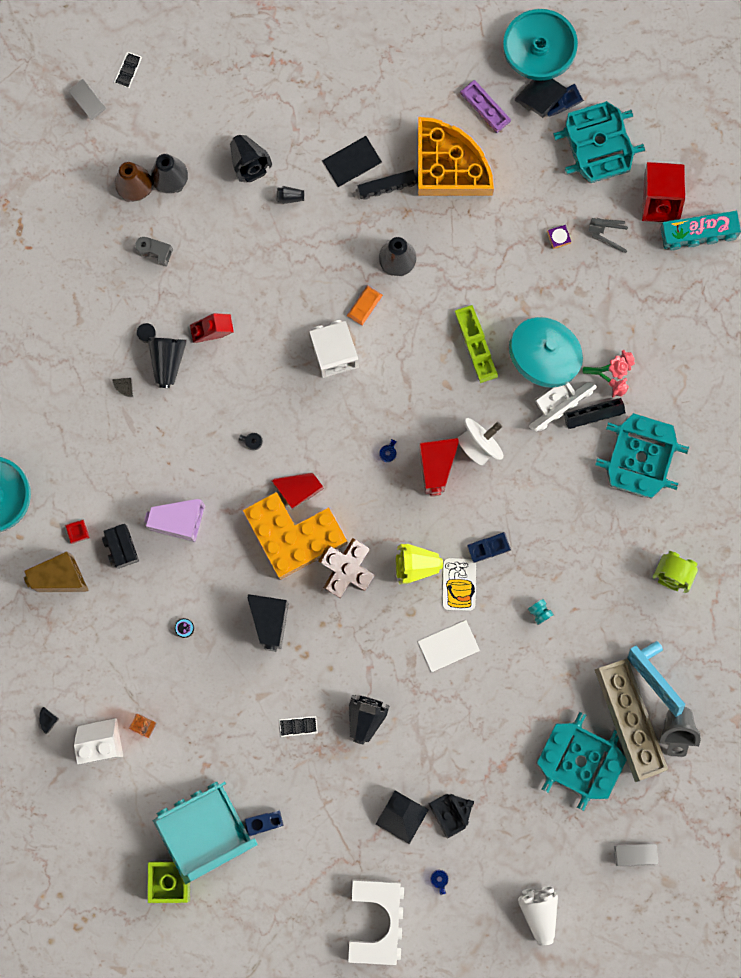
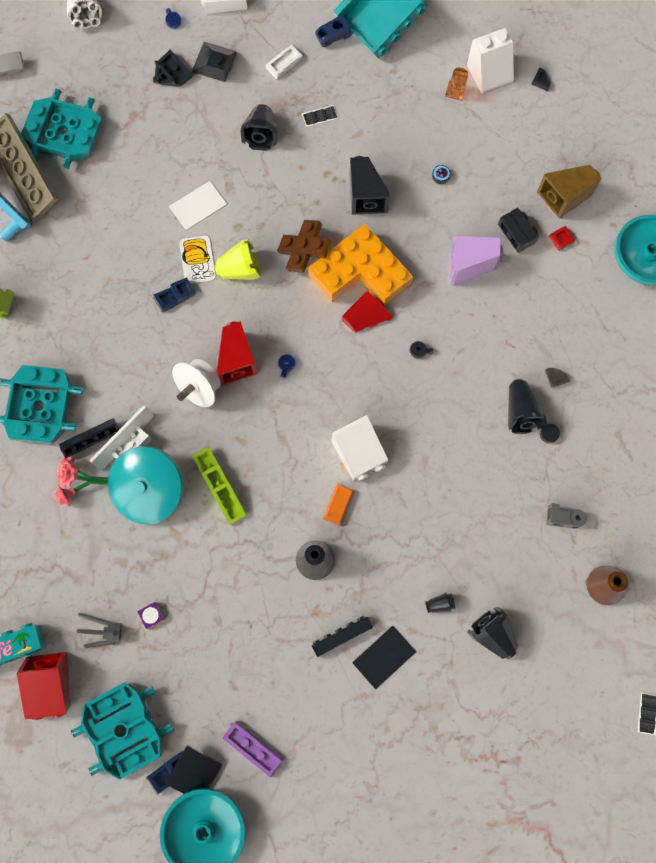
camera: 165 degrees right, 5 degrees down
(169, 174) = (566, 602): black cone -> none
(211, 327) = (486, 448): red slope -> none
(324, 799) = (284, 61): none -> white tile
(450, 162) = (279, 672): light orange brick -> none
(540, 611) = (116, 245): teal wheel -> none

